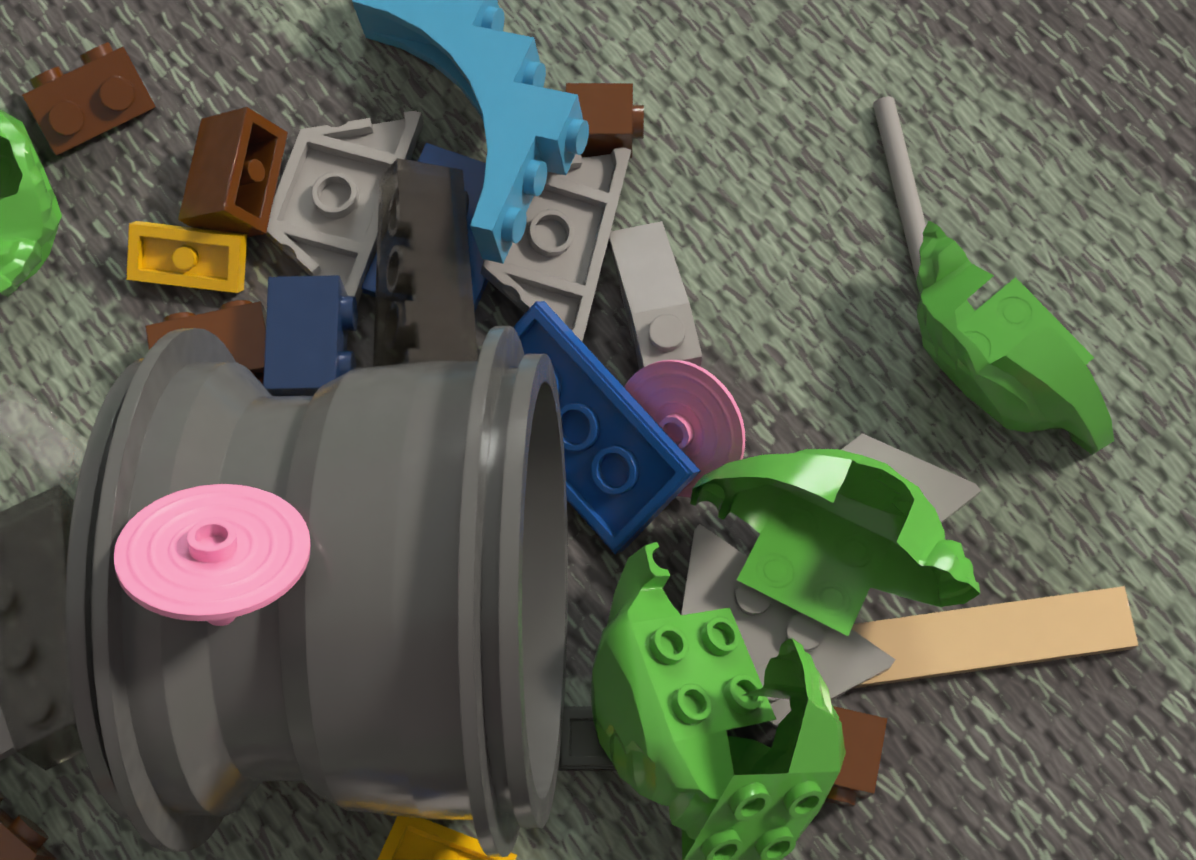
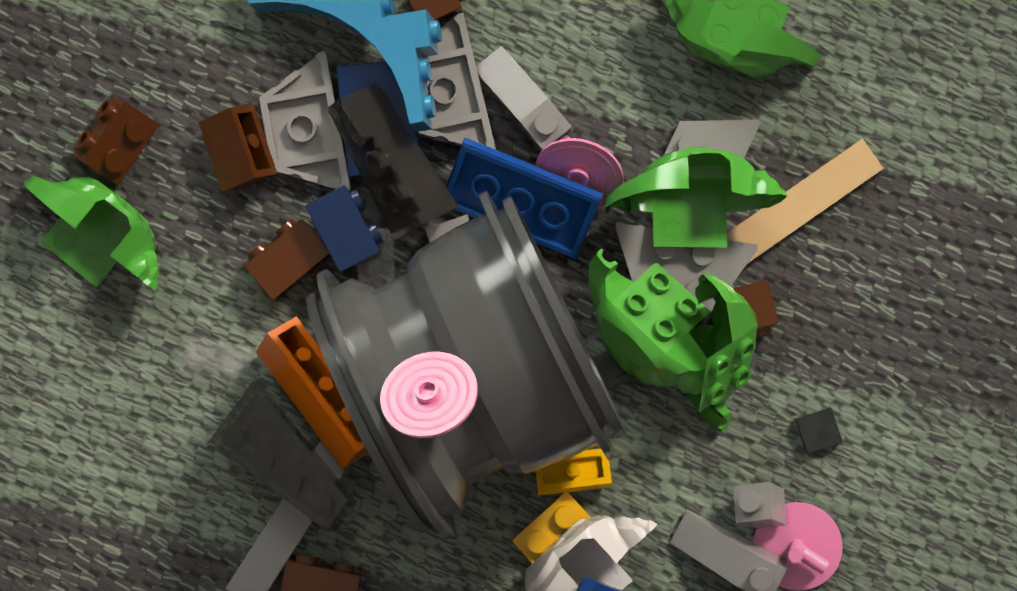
camera: 30 degrees left, 15 degrees up
(186, 256) = (237, 209): yellow plate -> none

